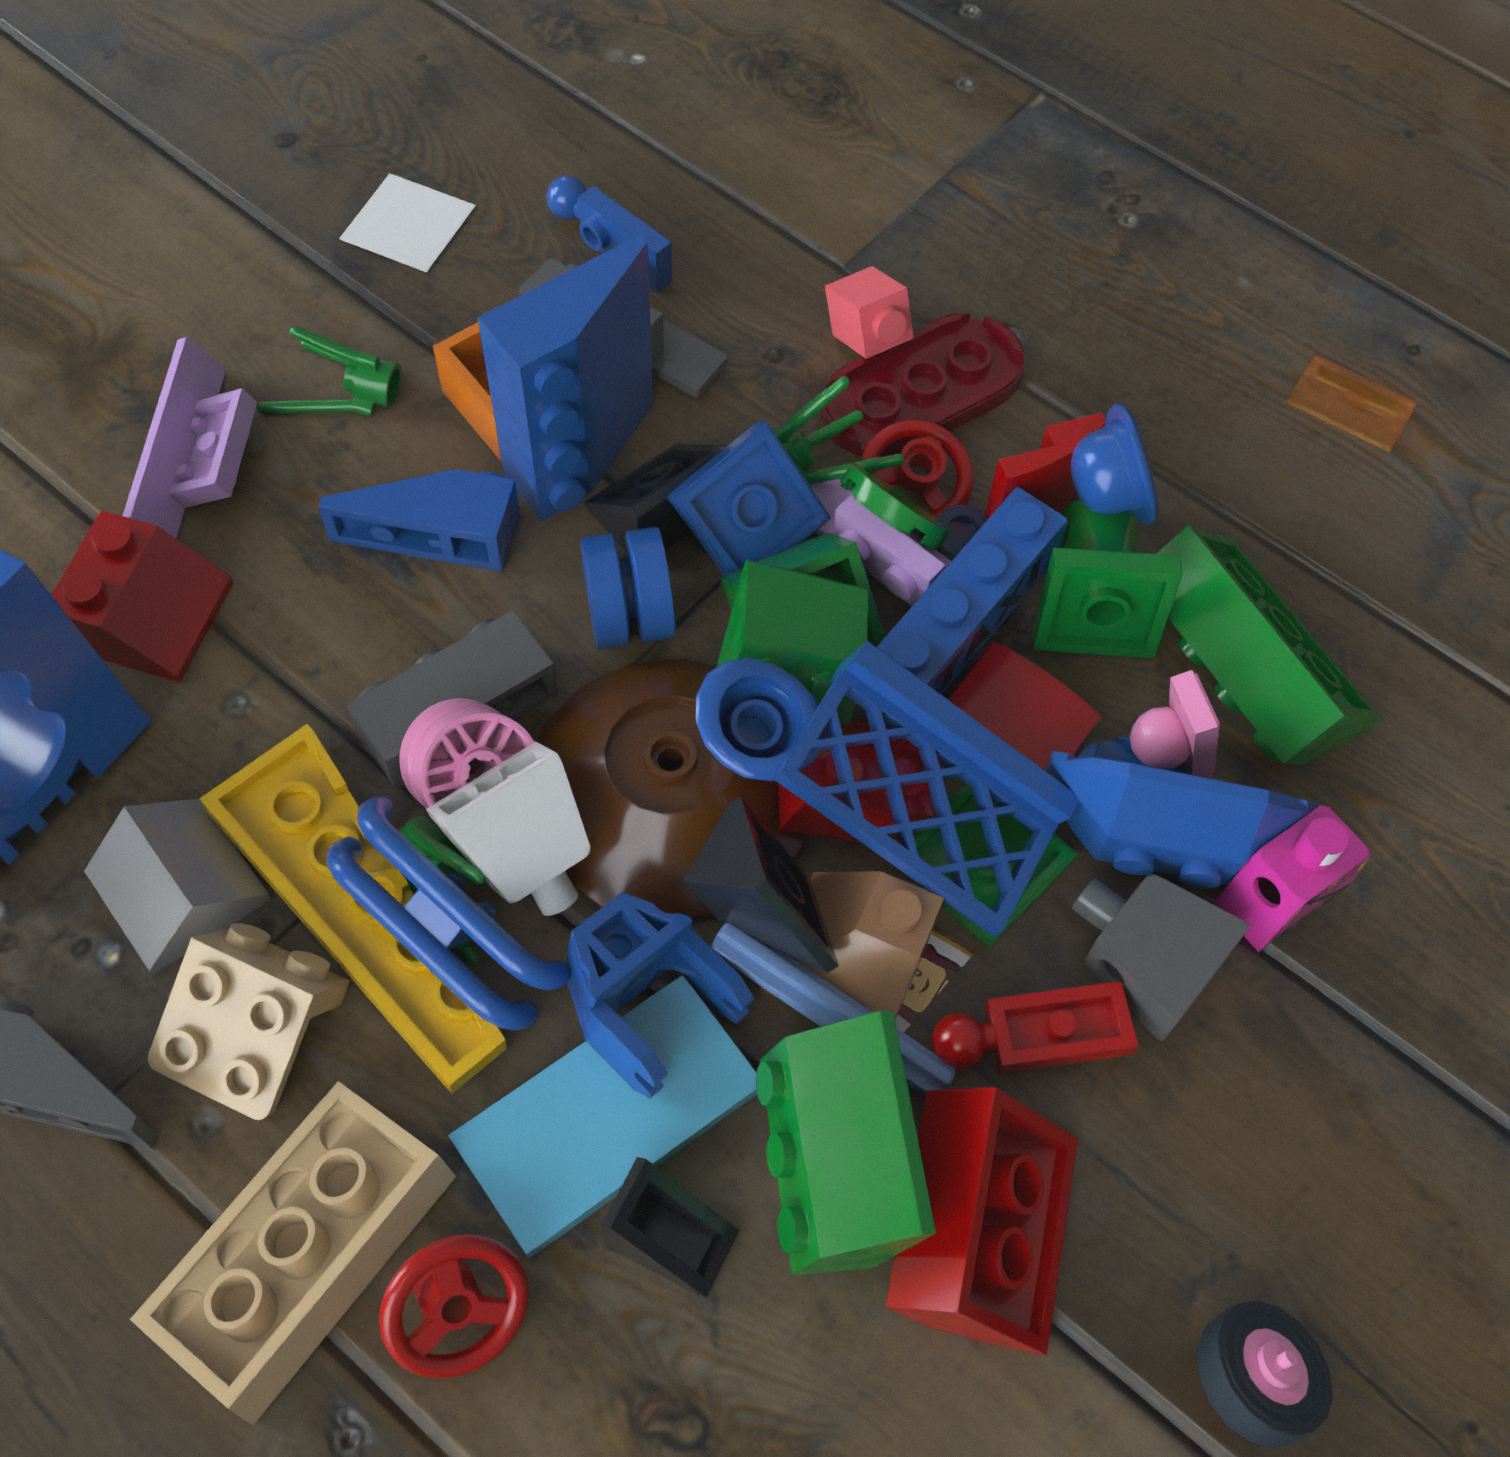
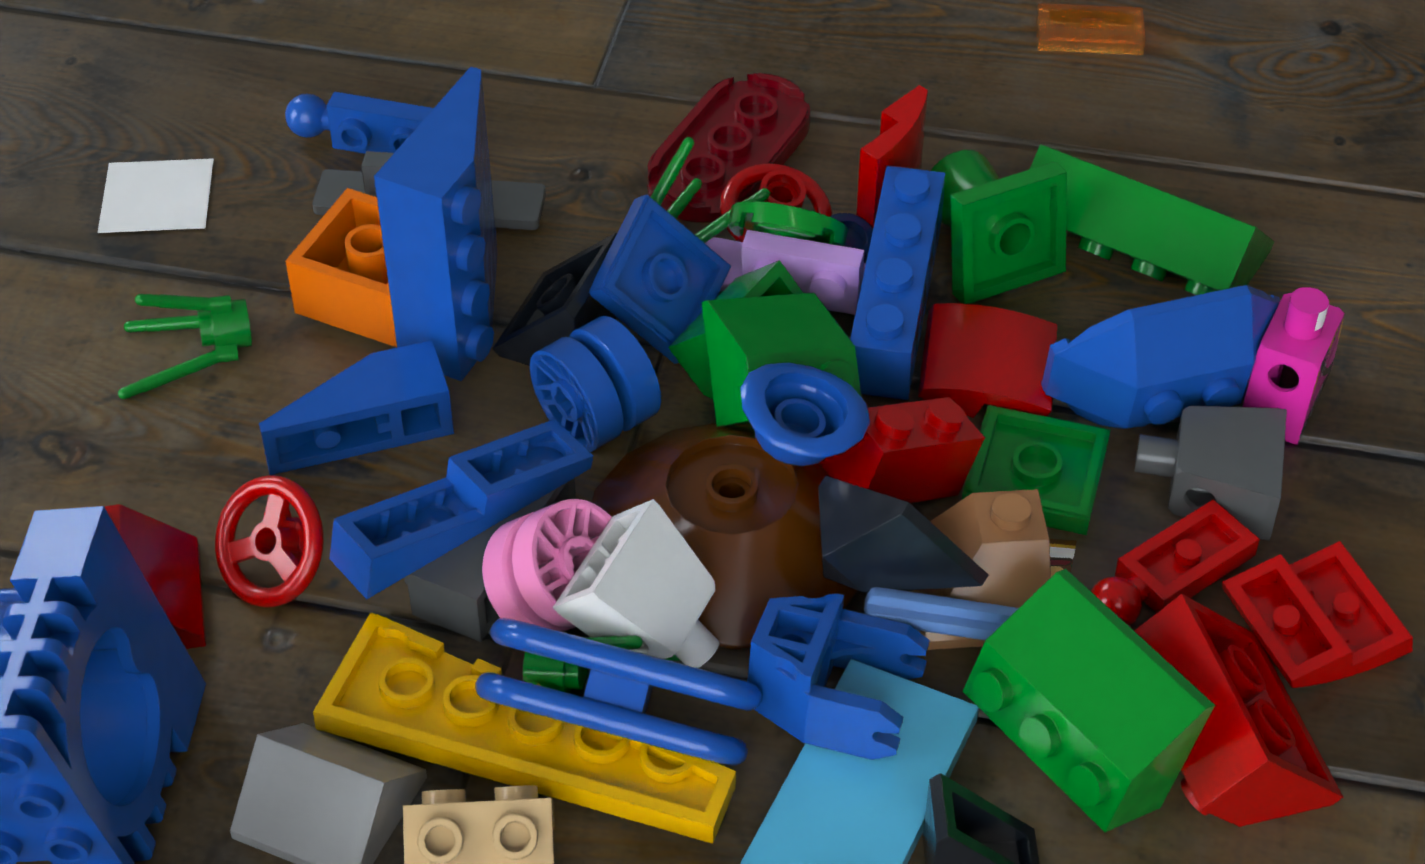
camera: 25 degrees left, 15 degrees down
(191, 442) = (90, 440): lavender bracket -> none
(281, 617) = (285, 541): none -> red piece
(450, 656) = (480, 489): none -> blue slope
(869, 312) = (650, 102): coral brick -> none
(944, 738) = (981, 378): blue fence -> none
(1113, 469) = (963, 117): blue hat -> none
(1147, 1153) = (1318, 616): none -> red slope
(1179, 733) = (1137, 280): bright pink tile -> none

